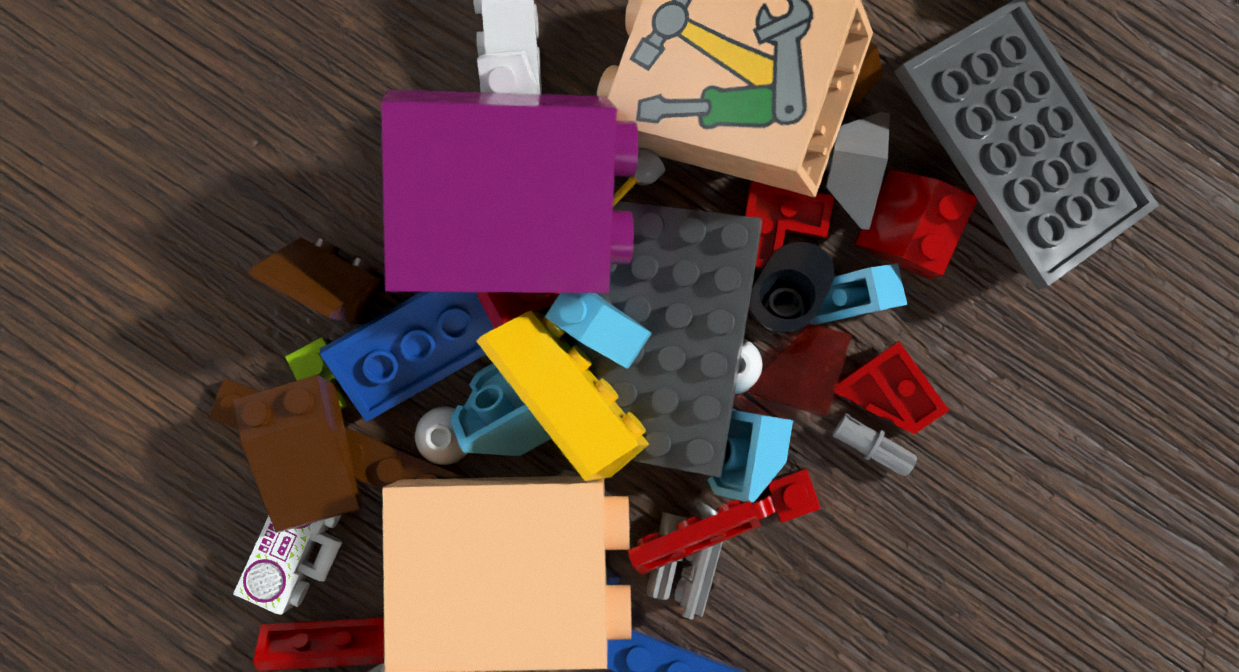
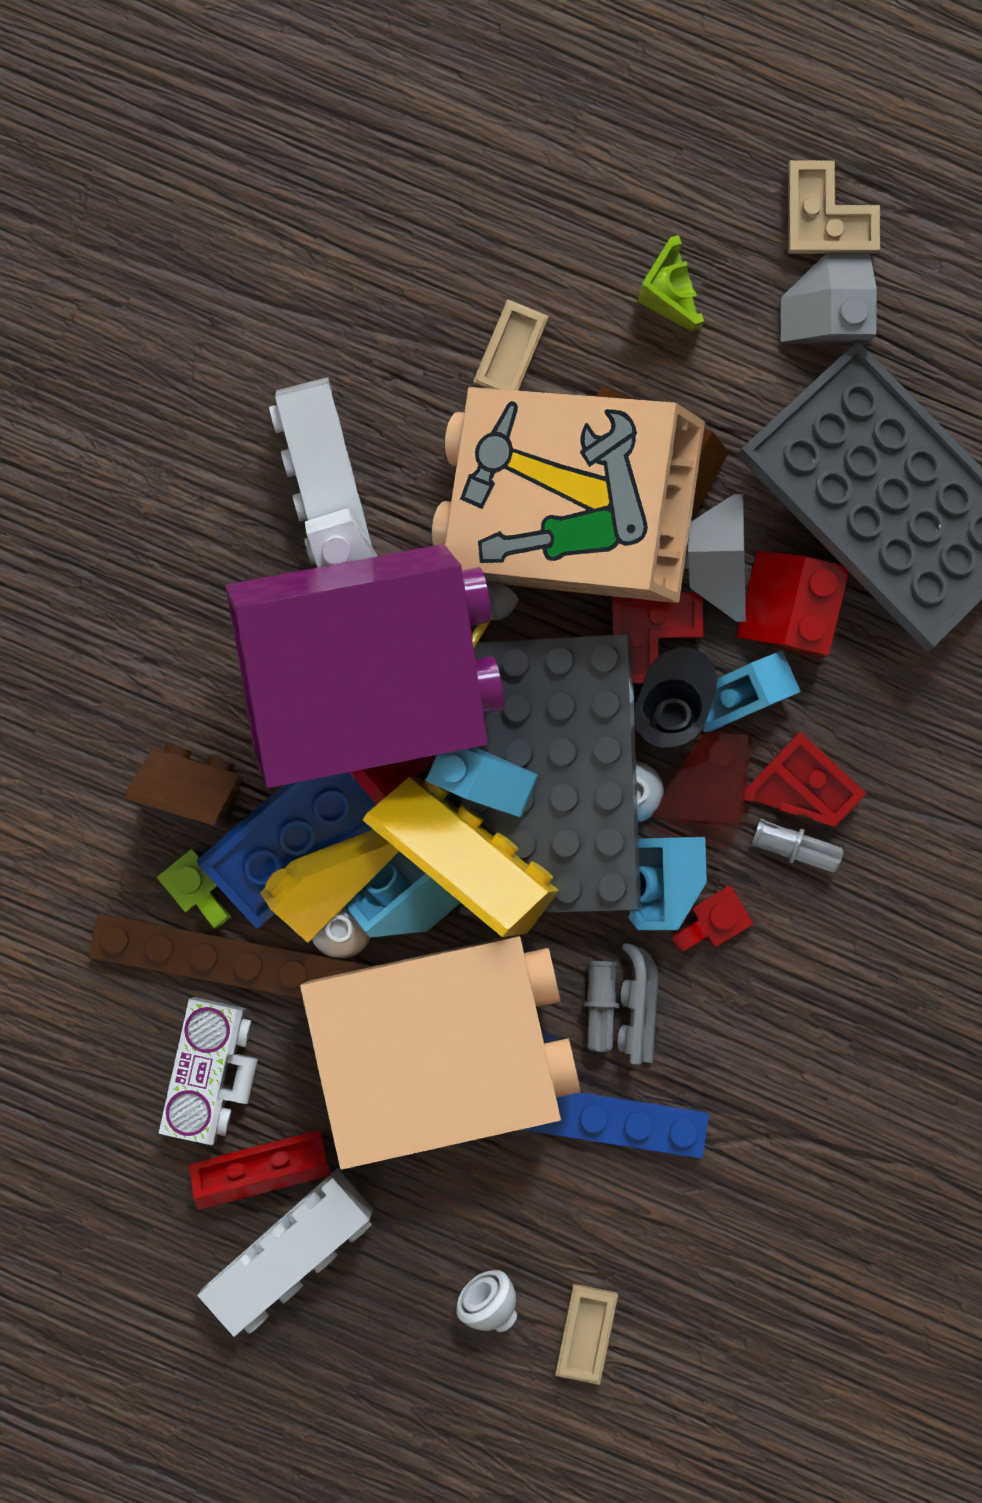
camera: 15 degrees left, 0 degrees up
(298, 452) = (200, 972): reddish brown slope -> none
(432, 392) = (324, 881): none -> yellow slope
(693, 536) = (624, 976): red plate -> none

